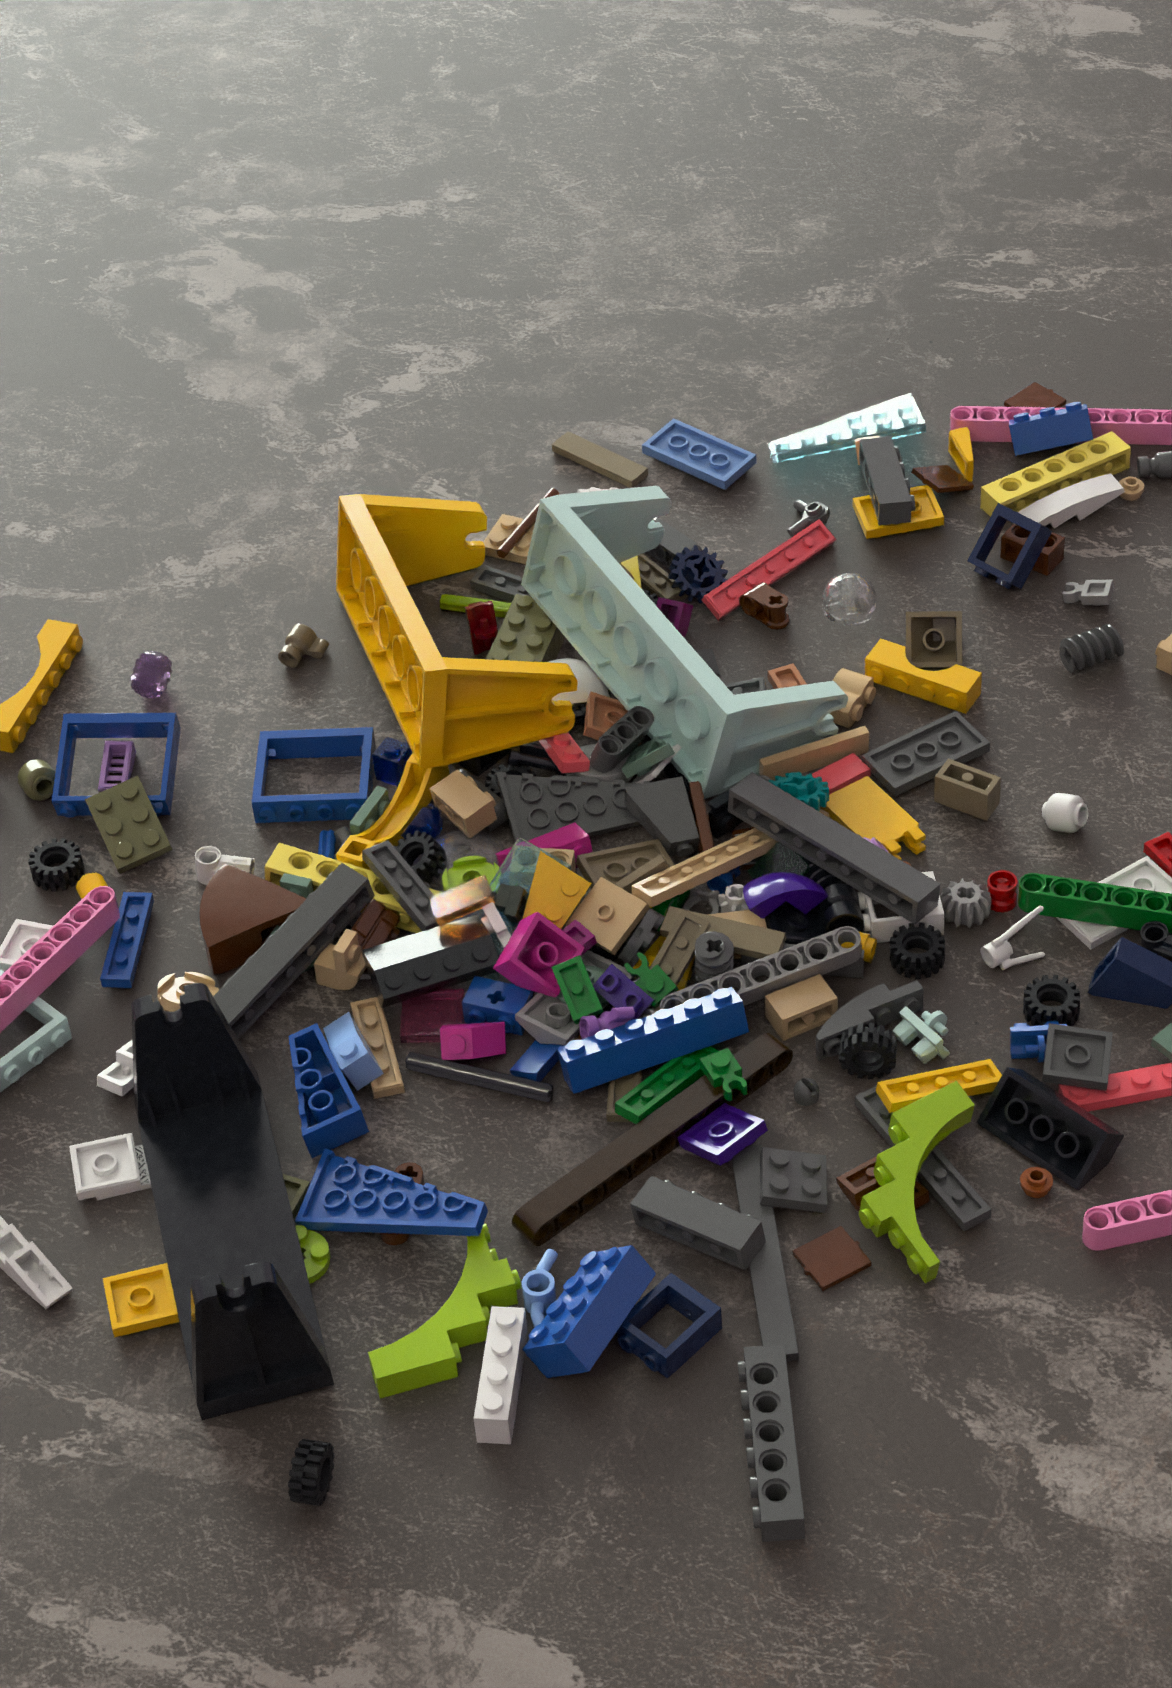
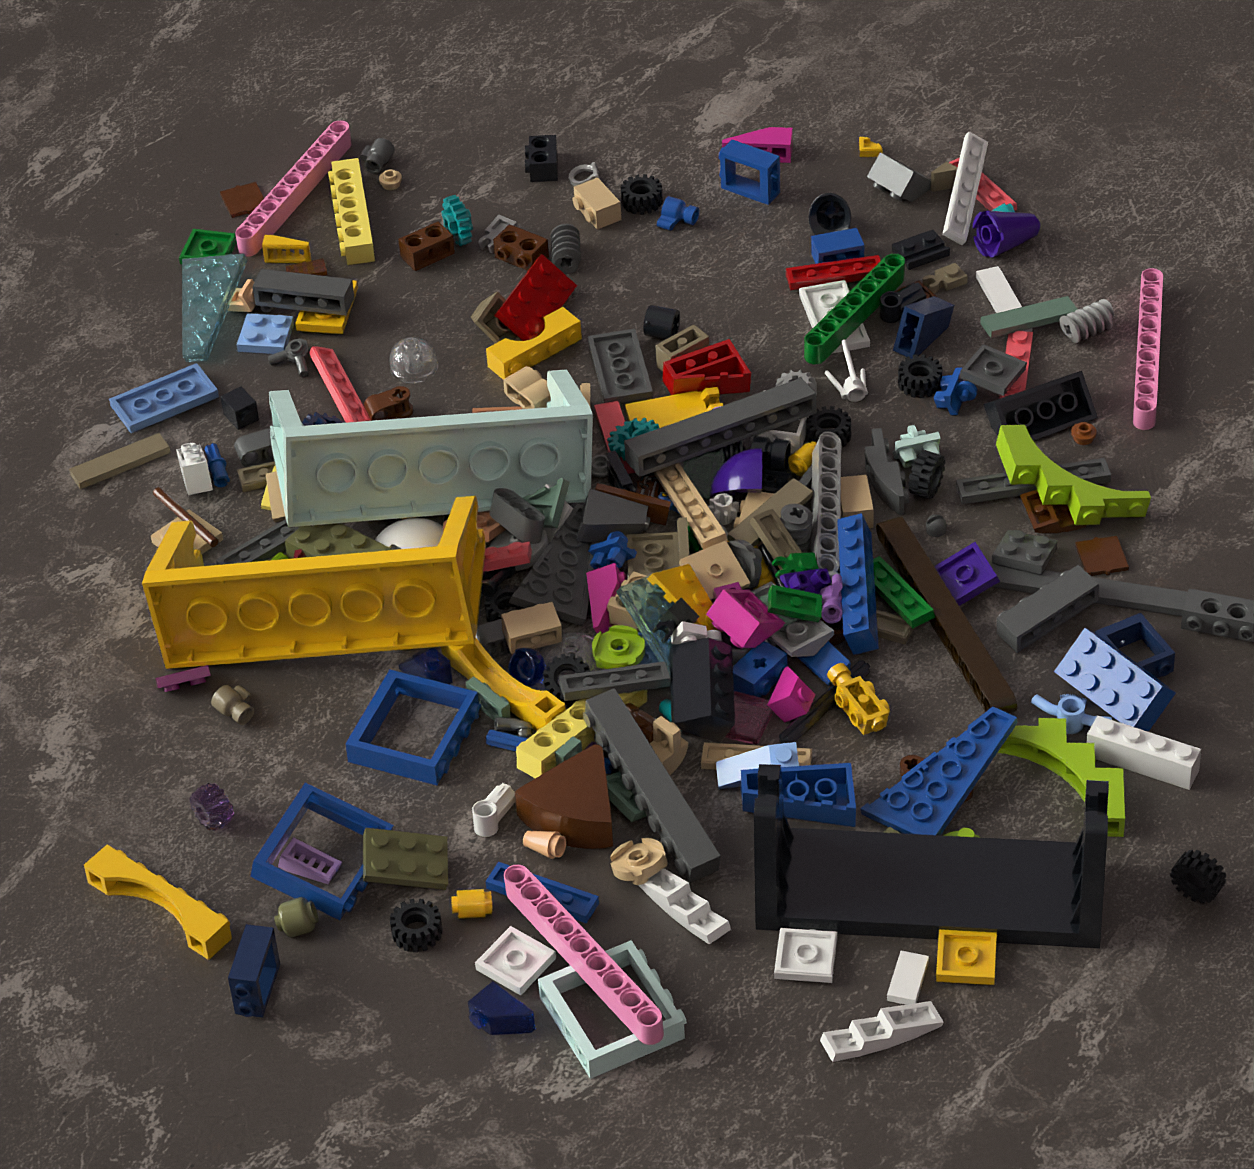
camera: 70 degrees left, 0 degrees up
(101, 1260) = (907, 978): none -> white tile
(190, 922) = (546, 843): none -> light nougat cone
(317, 598) = (194, 676): none -> magenta plate
(461, 900) = (666, 641): clear orange slope -> none
(466, 1111) = (858, 700): none -> yellow brick
(616, 831) = (611, 551): none -> blue hips
(708, 505) = (239, 408): none -> black brick
(724, 1070) = (911, 552): green plate -> none
(835, 485) = (265, 333): none -> light blue plate
(937, 402) = (208, 243): none -> green tile
(947, 819) = (708, 368): none -> red wedge
(973, 1078) = (977, 449): yellow plate -> none
(993, 649) = (535, 296): none -> red plate
(1002, 889) = (794, 361): red wheel -> none
(1011, 759) = (661, 322): none -> black piece
(1026, 557) = (406, 235): dark blue window -> none
(1050, 428) = (305, 191): blue brick -> none
(1065, 812) = (733, 313): white head -> none
(1071, 612) = (519, 247): none -> reddish brown brick
(1073, 549) = (457, 220): none -> teal gear
(1075, 500) = (390, 213): white slope -> none

